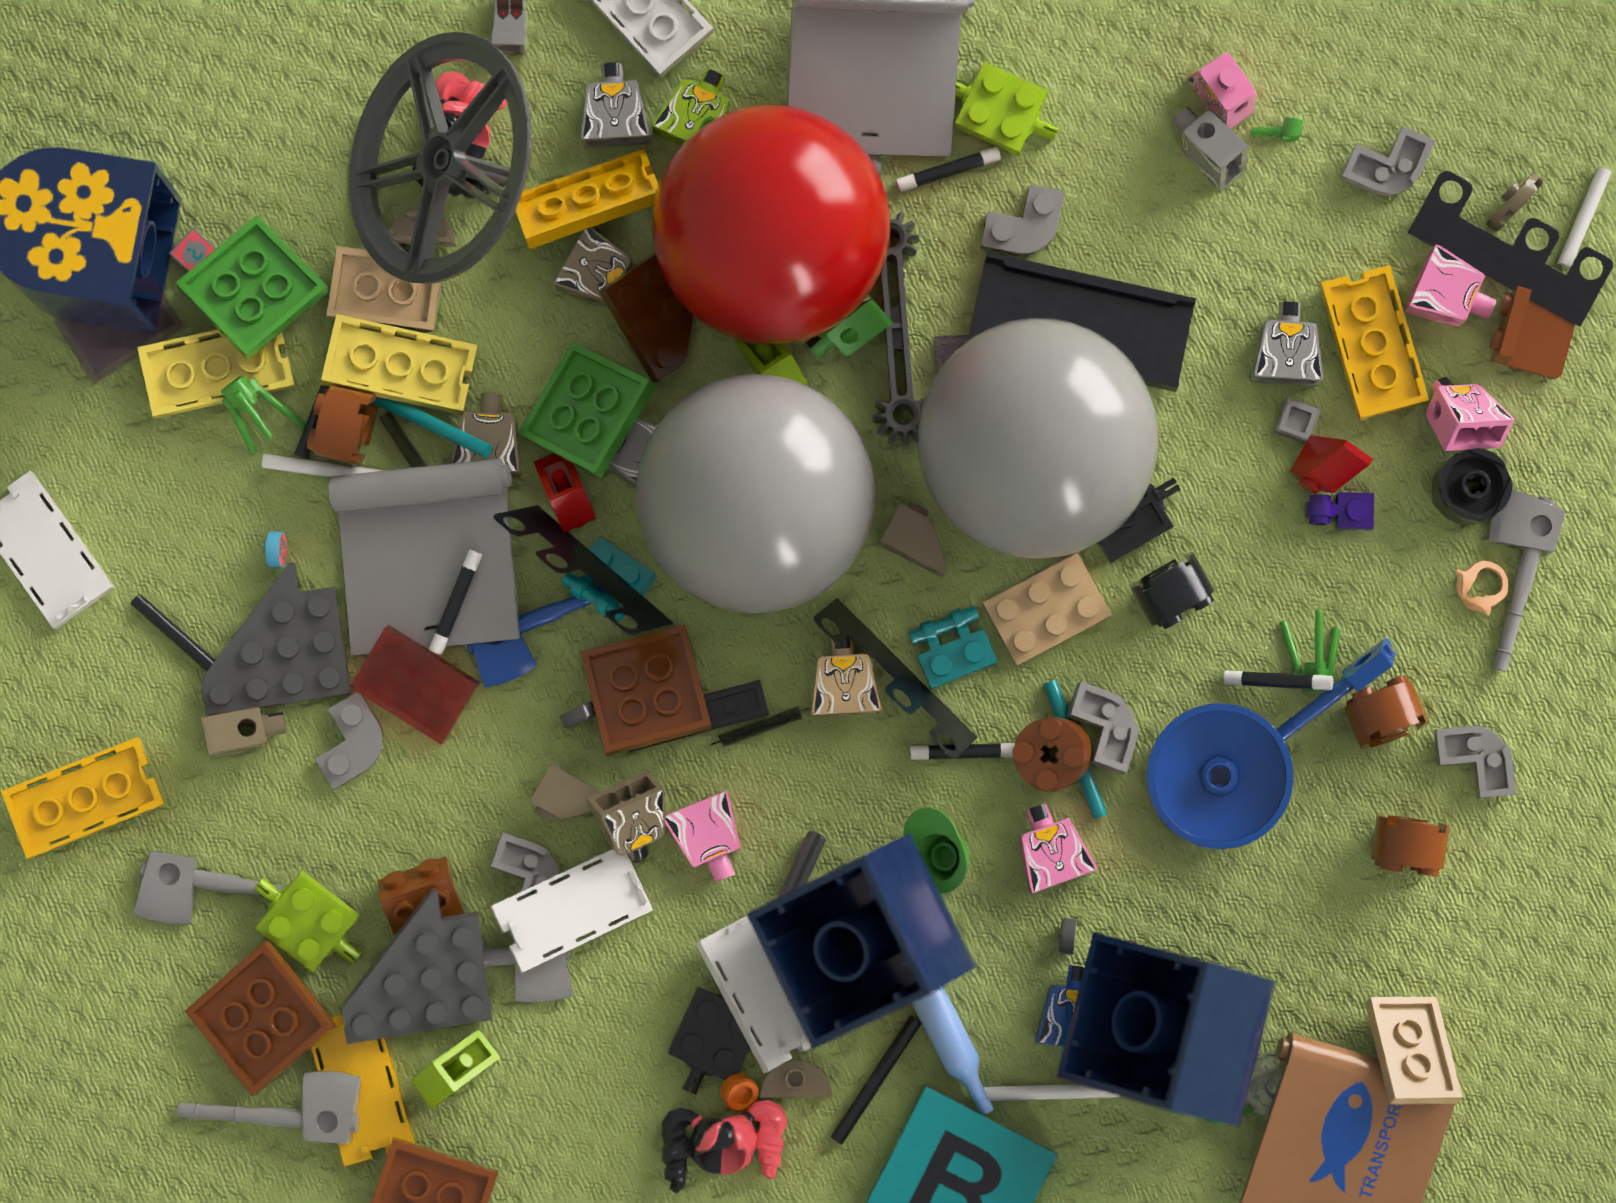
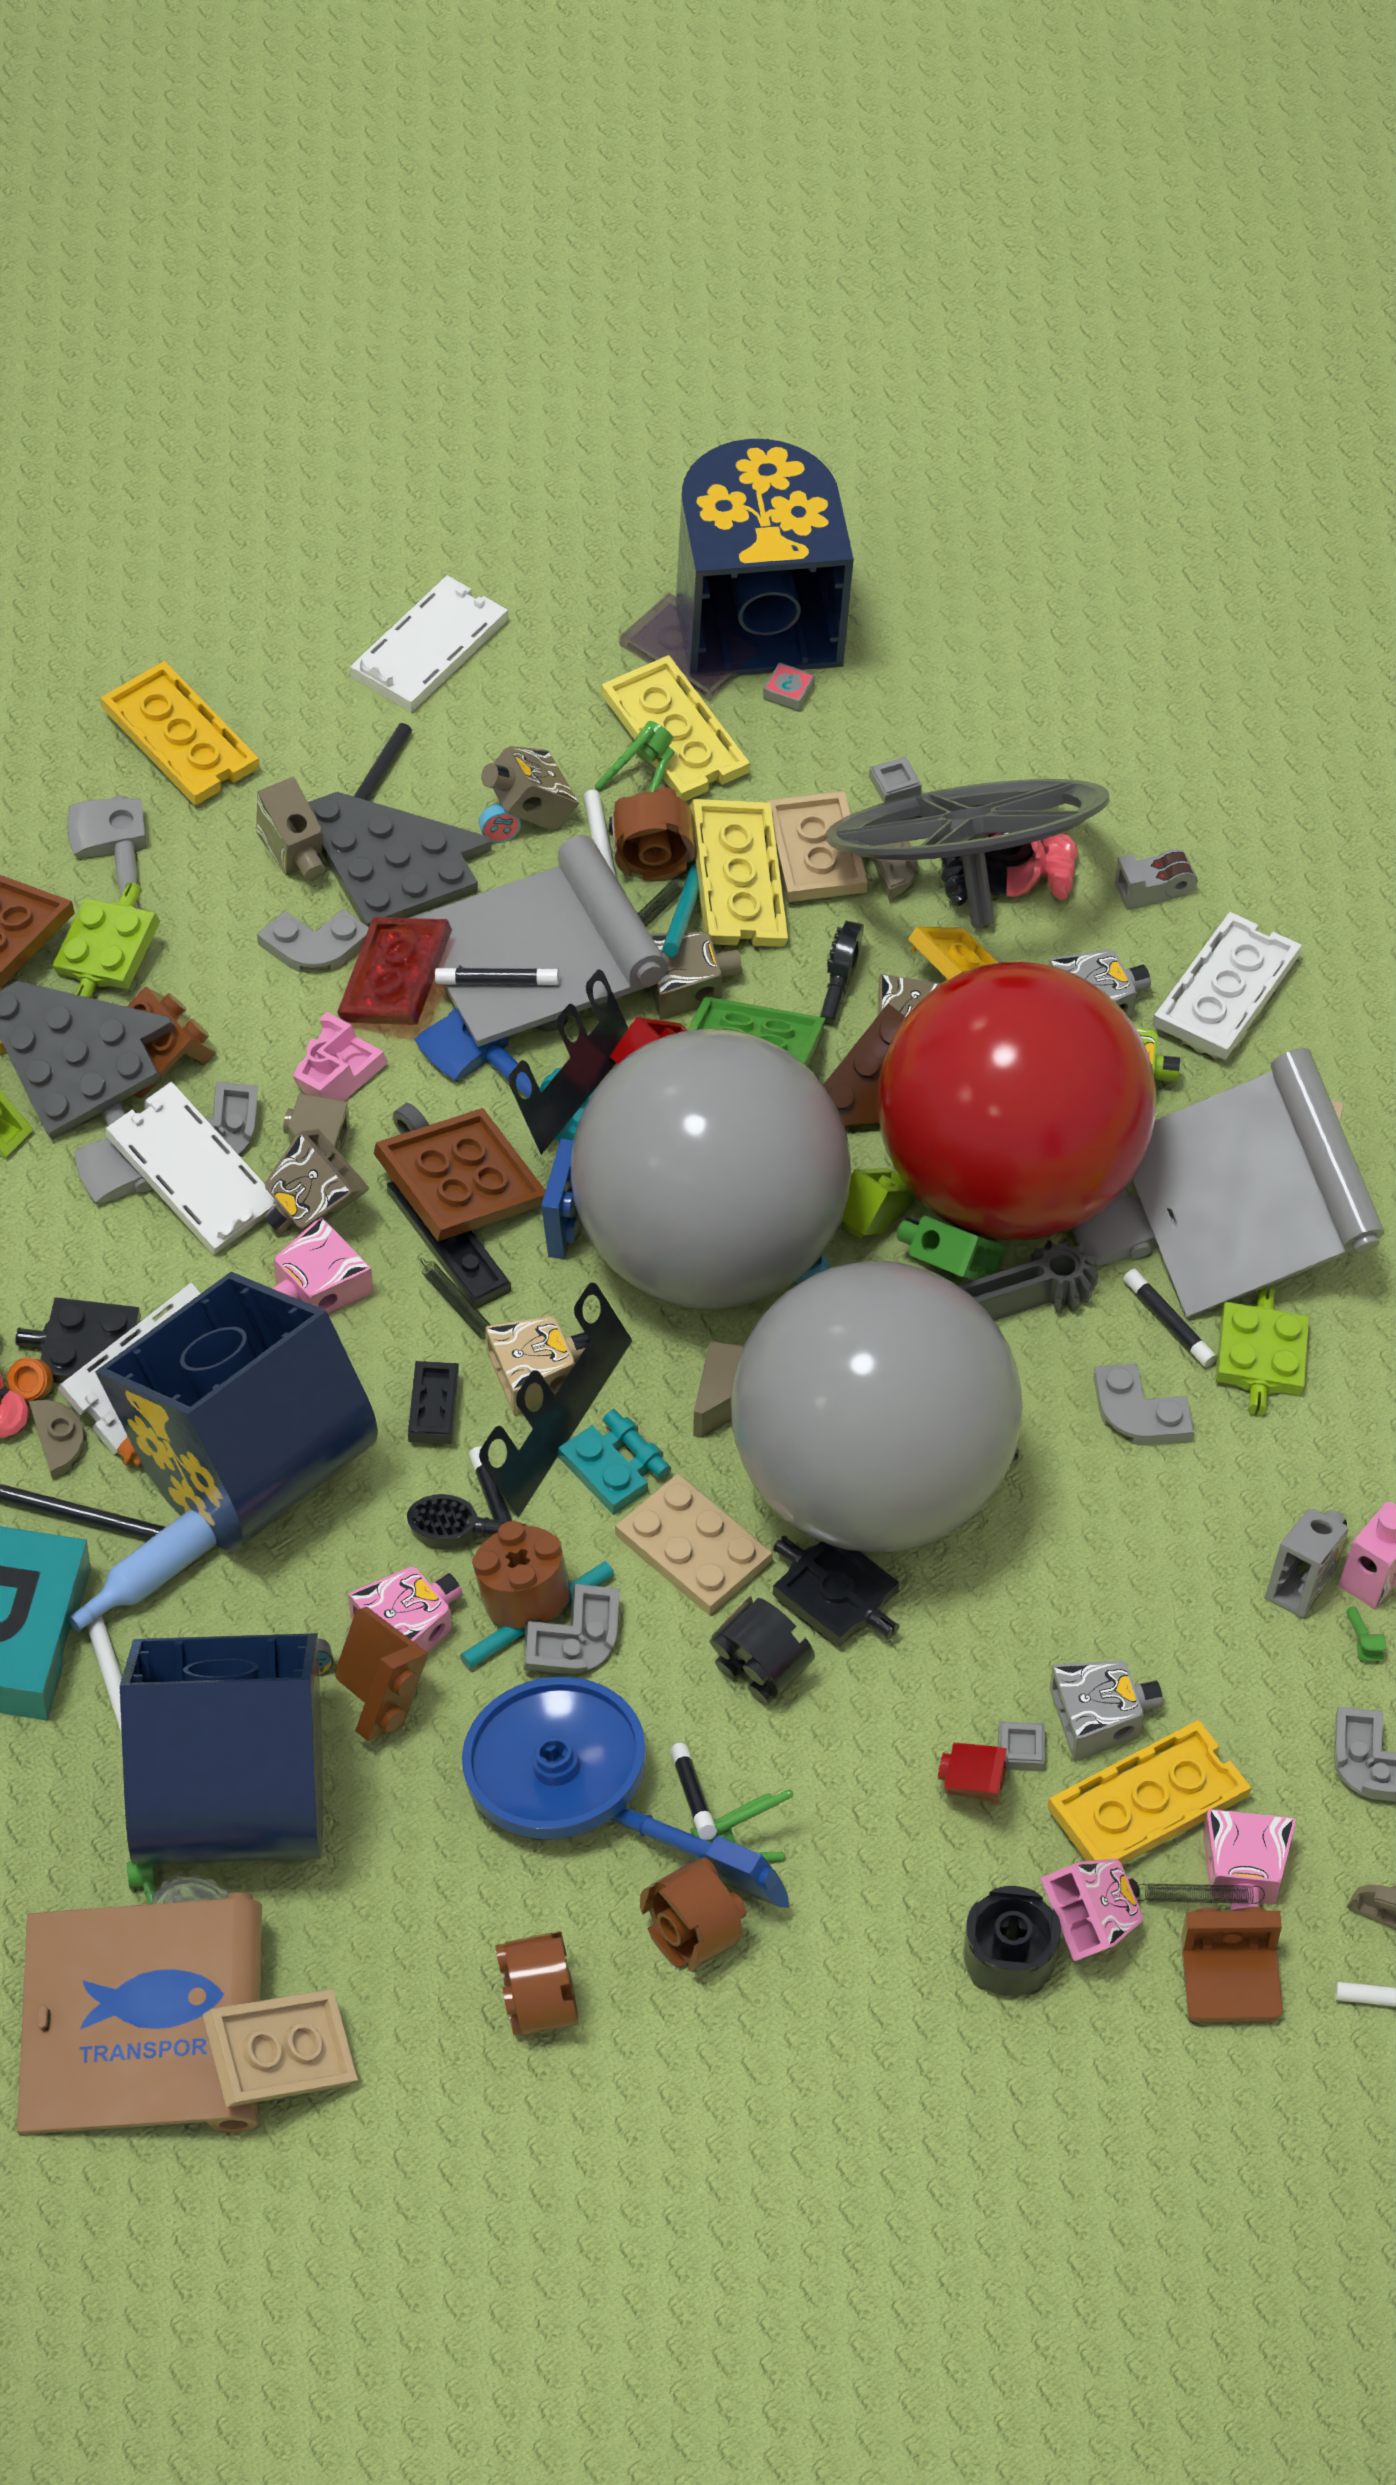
camera: 75 degrees right, 30 degrees down
(252, 287) = (770, 730): bright green plate -> none
(253, 512) = (531, 786): none -> dark tan torso
(329, 197) = (895, 779): none -> light grey tile
(490, 759) = (337, 1061): none -> bright pink slope
(524, 311) = (841, 967): none -> black piece
(718, 620) = (559, 1206): none -> blue plate
(857, 774) = (433, 1402): none -> black plate
(939, 846) = (369, 1495): bright green piece -> none
(976, 790) = (448, 1522): none -> black piece
(1108, 882) = (380, 1670): none -> dark orange bracket
(1138, 320) = (1054, 1502): black ladder -> none
(1351, 510) = (929, 1830): dark purple plate -> none
(1460, 353) = (1198, 1889): none -> black piece
(1465, 581) = (875, 2008): light nougat piece -> none
(1485, 750) = (686, 2054): light grey plate -> none
(1510, 265) = (1308, 1921): black piece -> none
(1535, 528) = (990, 2038): light grey piece -> none

